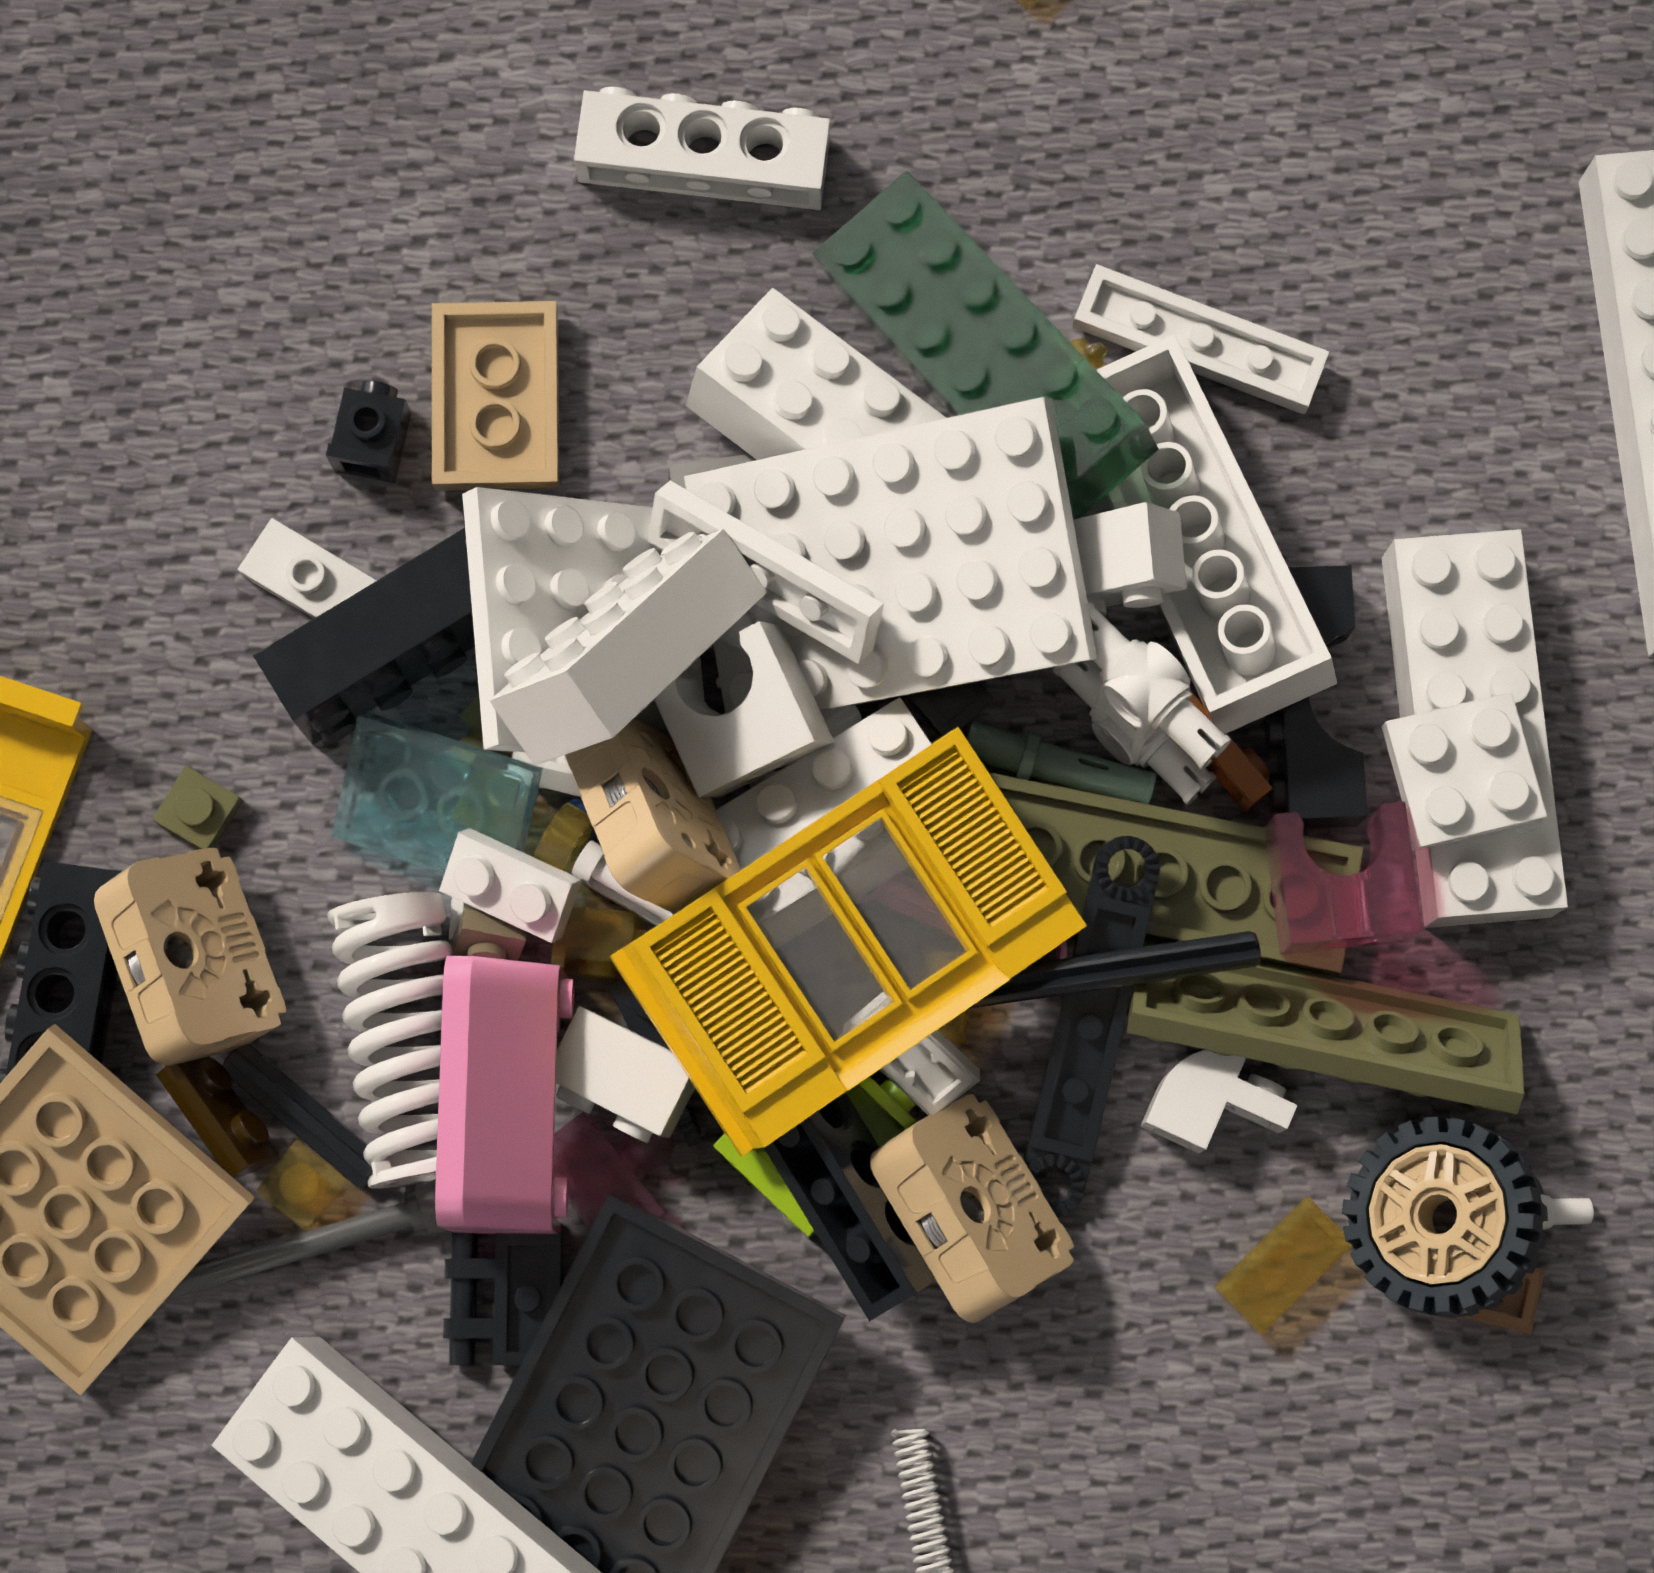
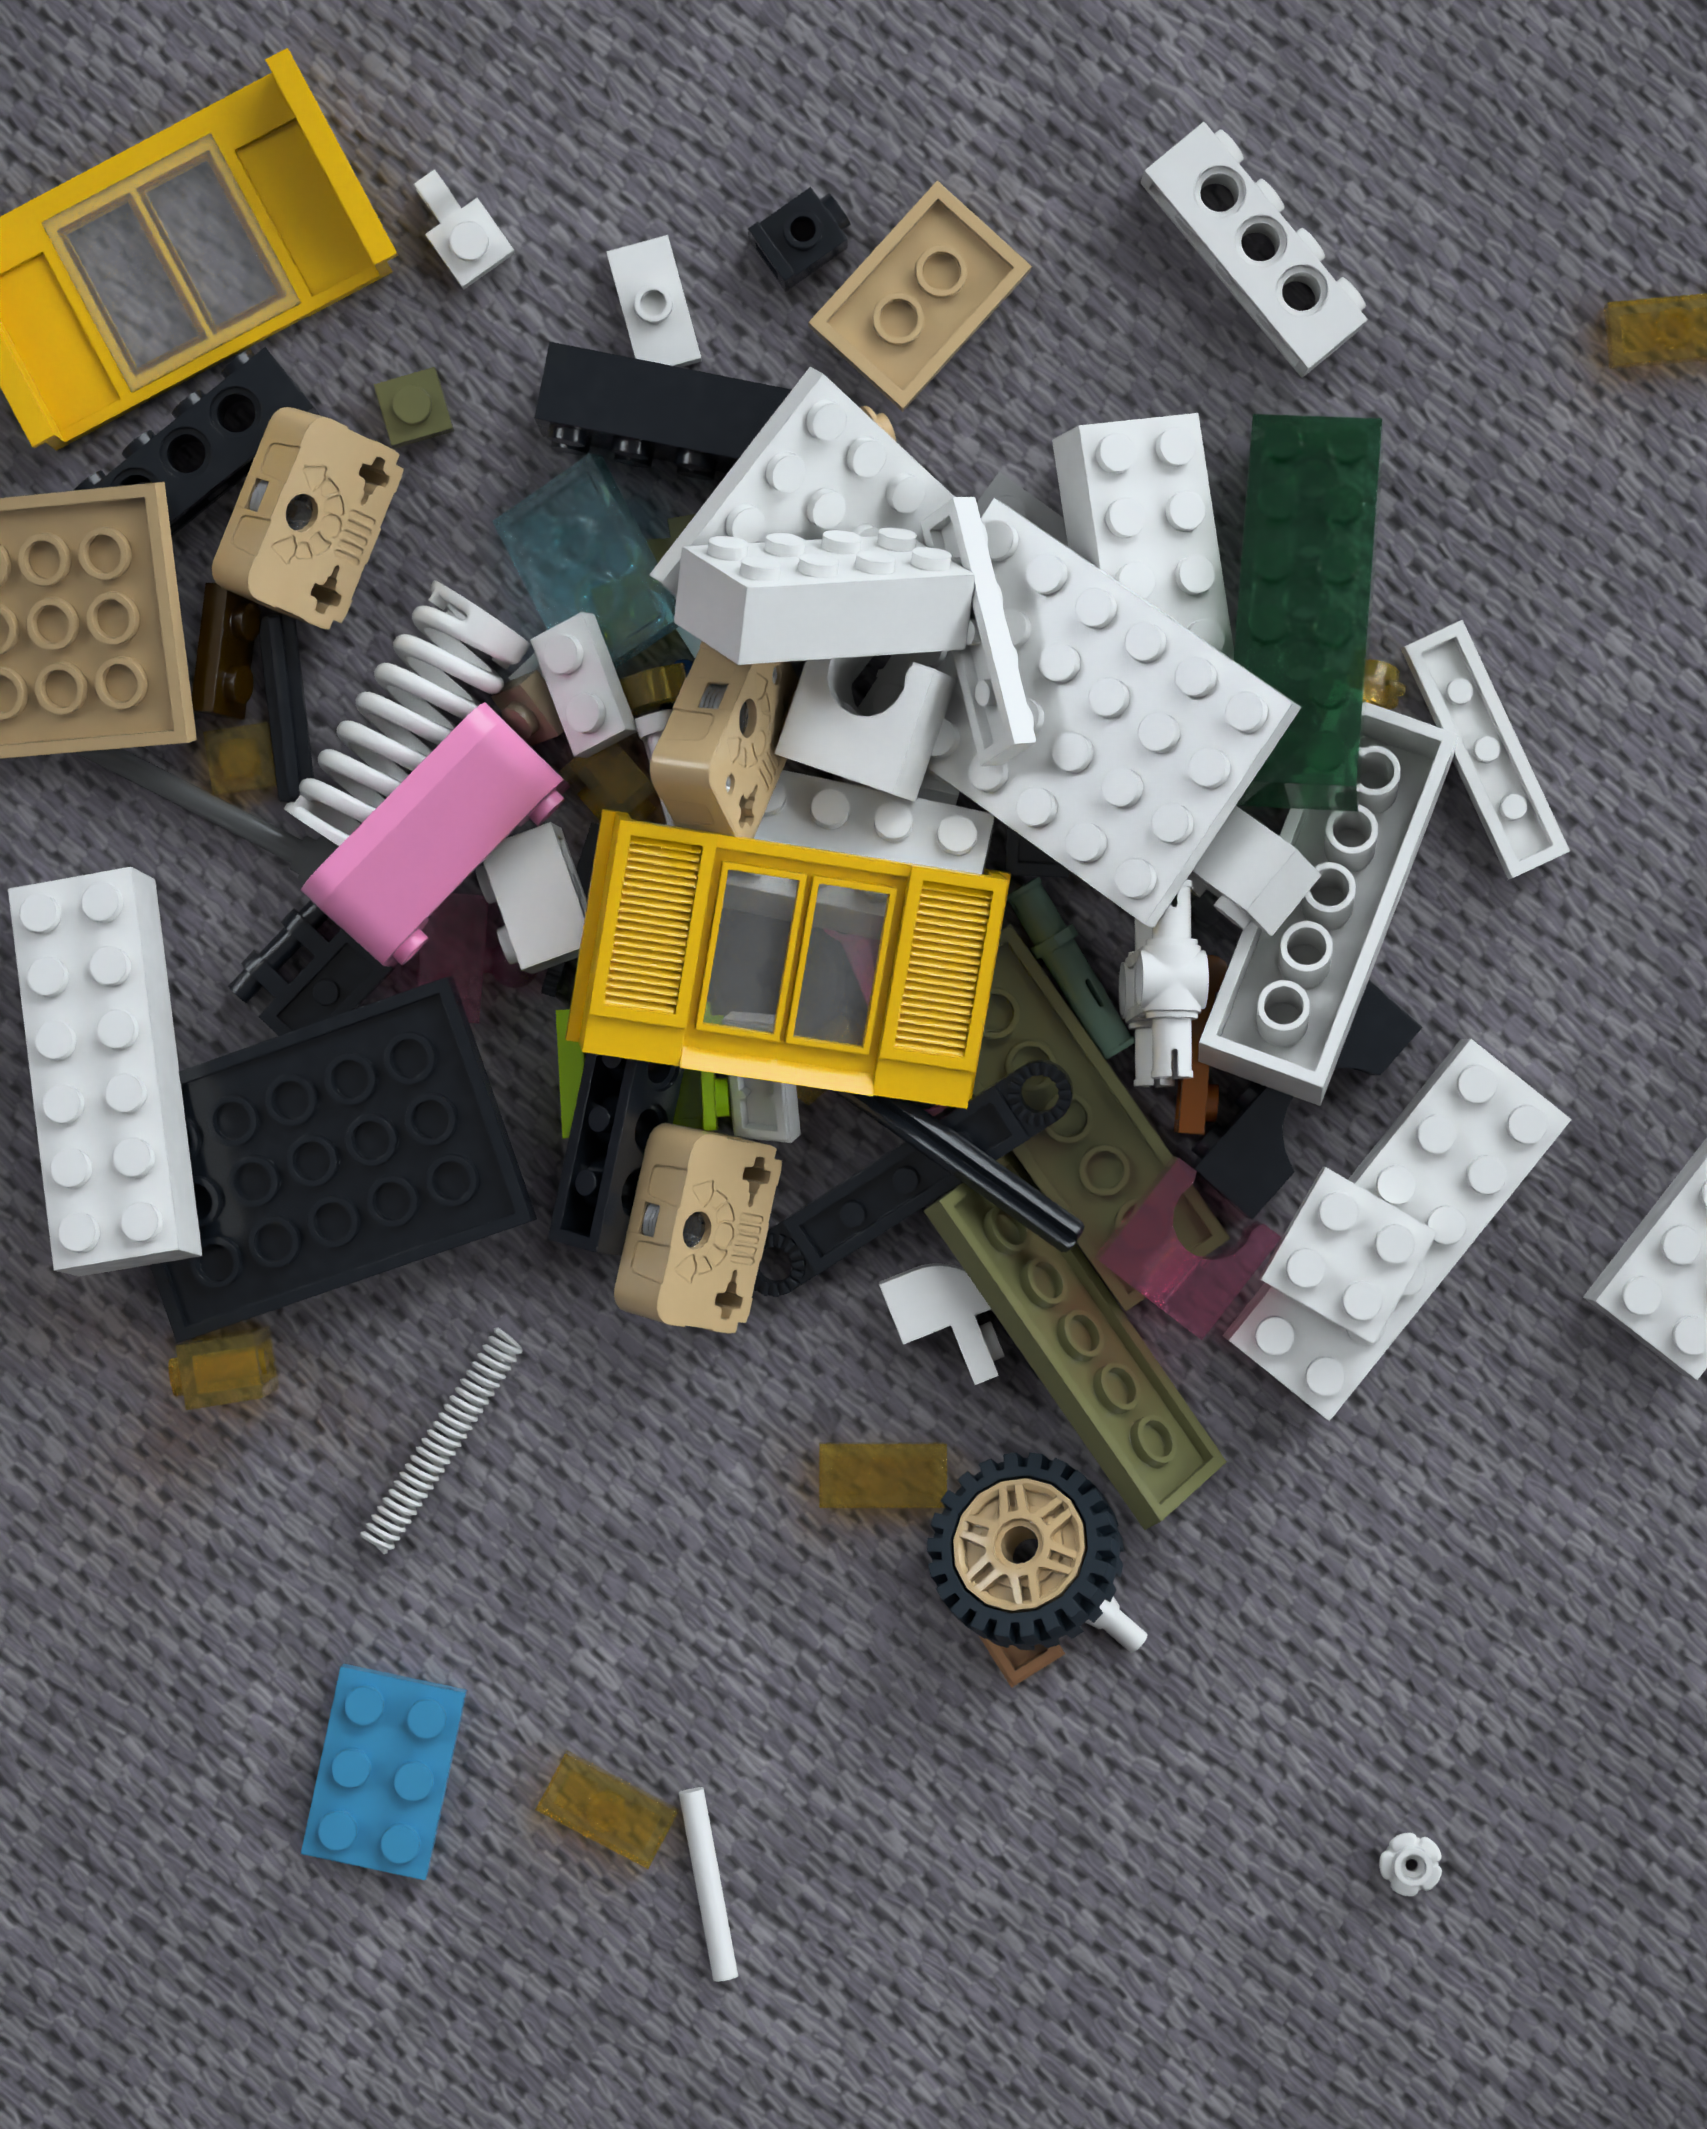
camera: 45 degrees right, 10 degrees up
(124, 654) = (466, 236): none -> white plate

